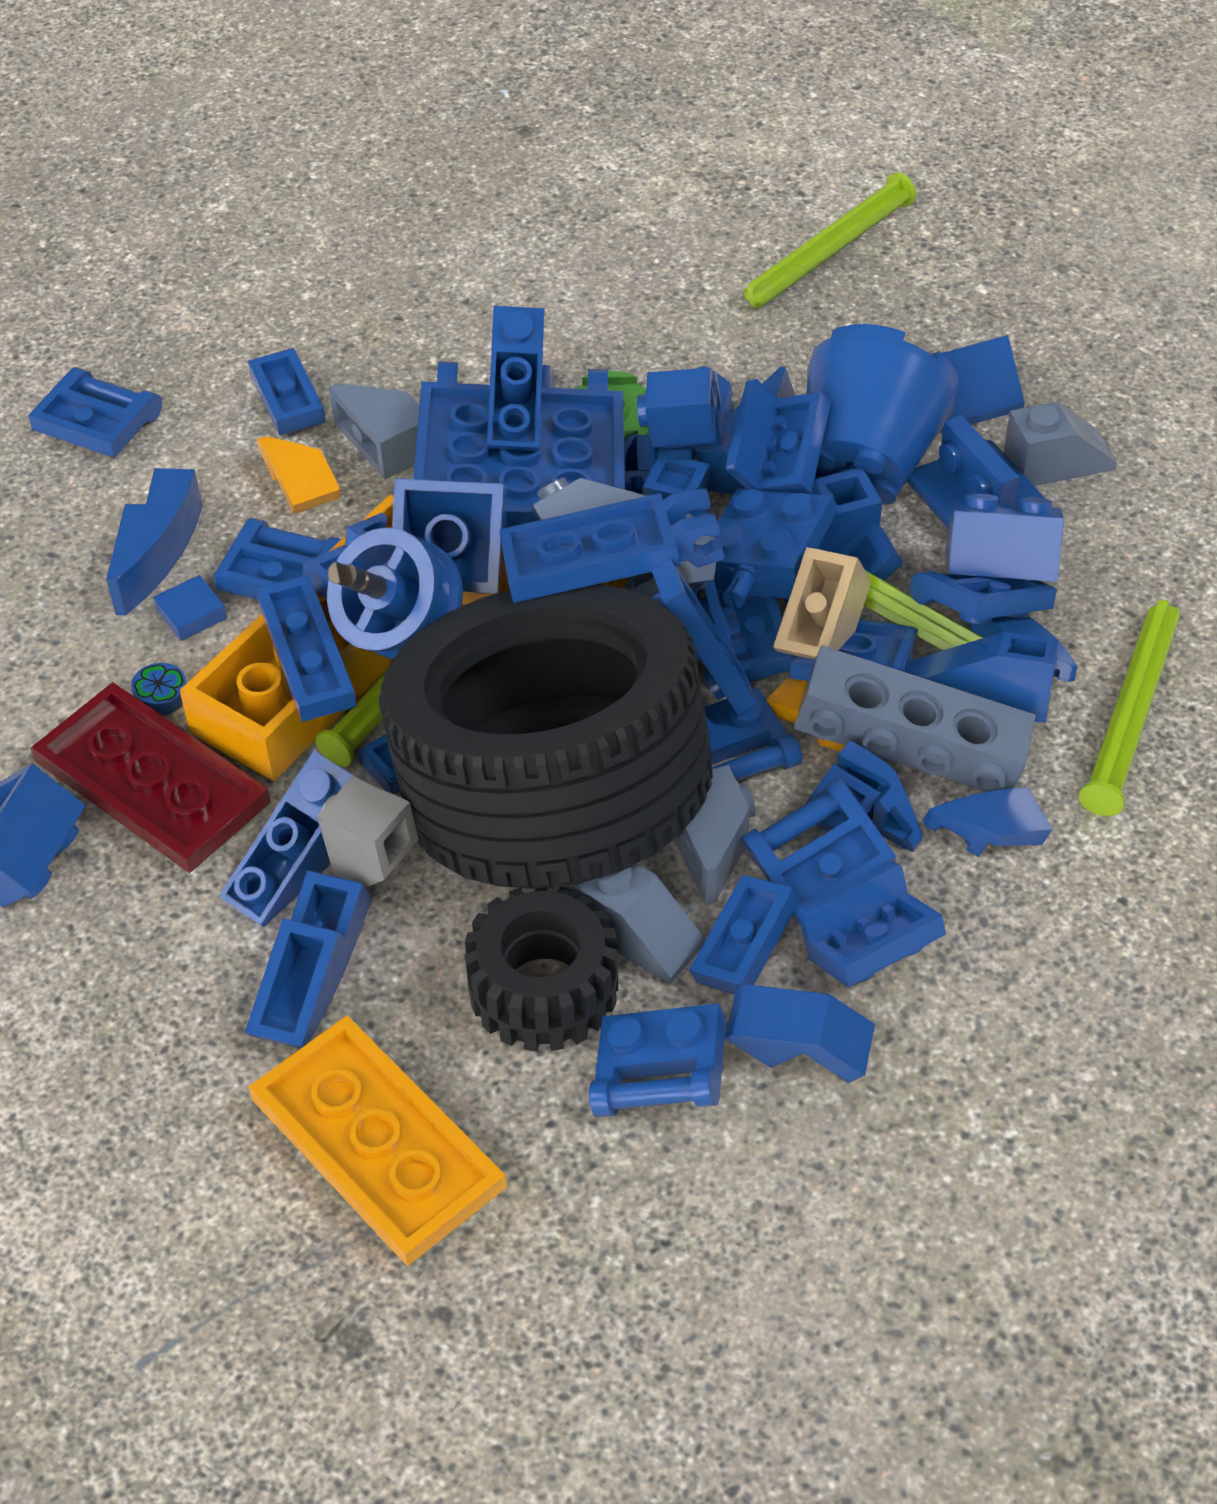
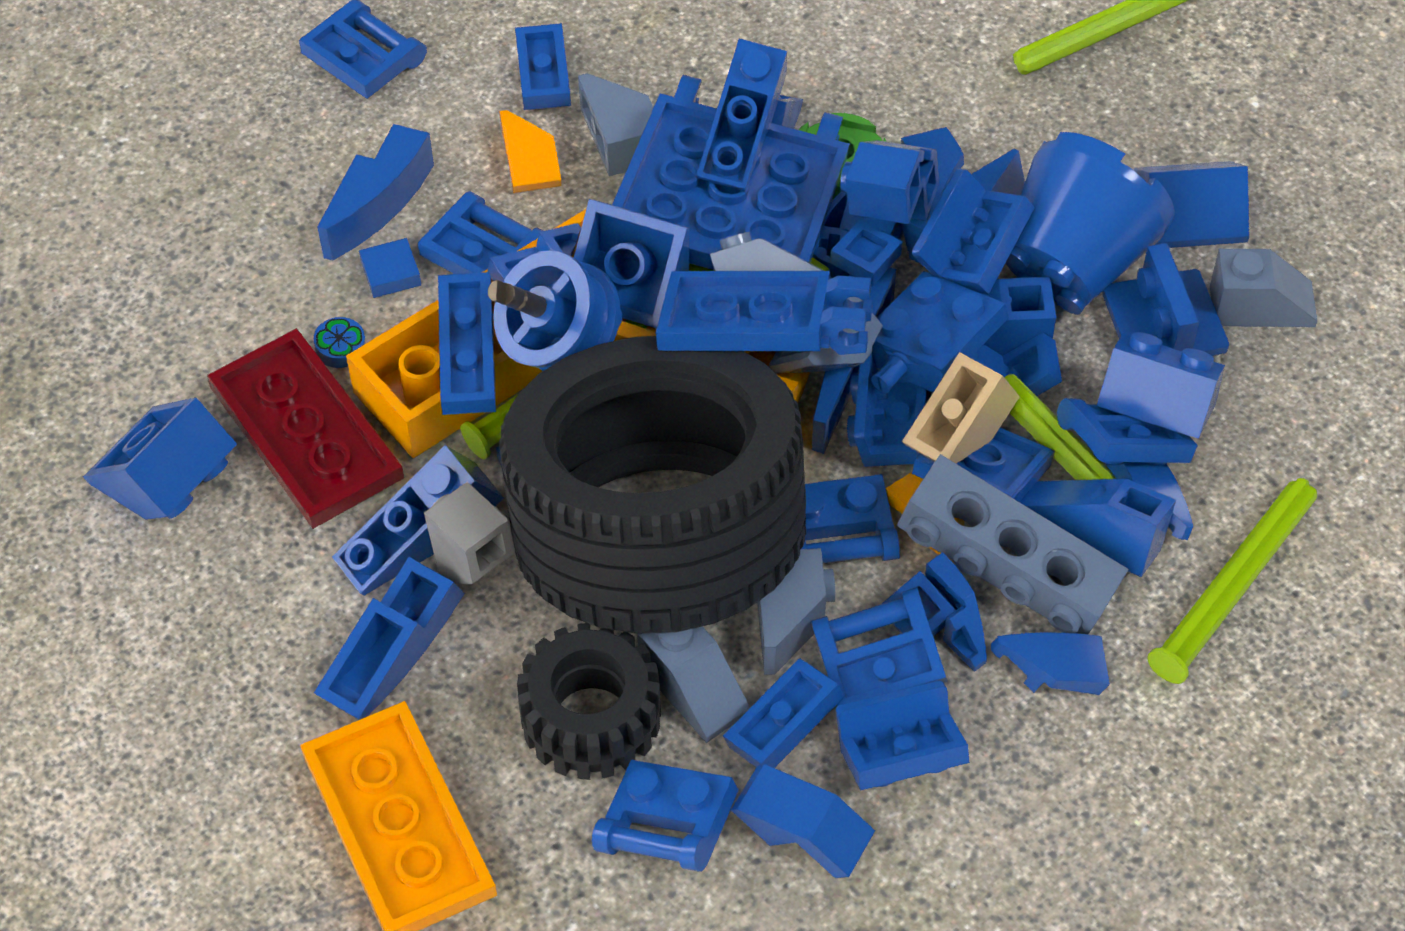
camera: 15 degrees right, 5 degrees up
(723, 671) = (830, 422): blue plate -> none

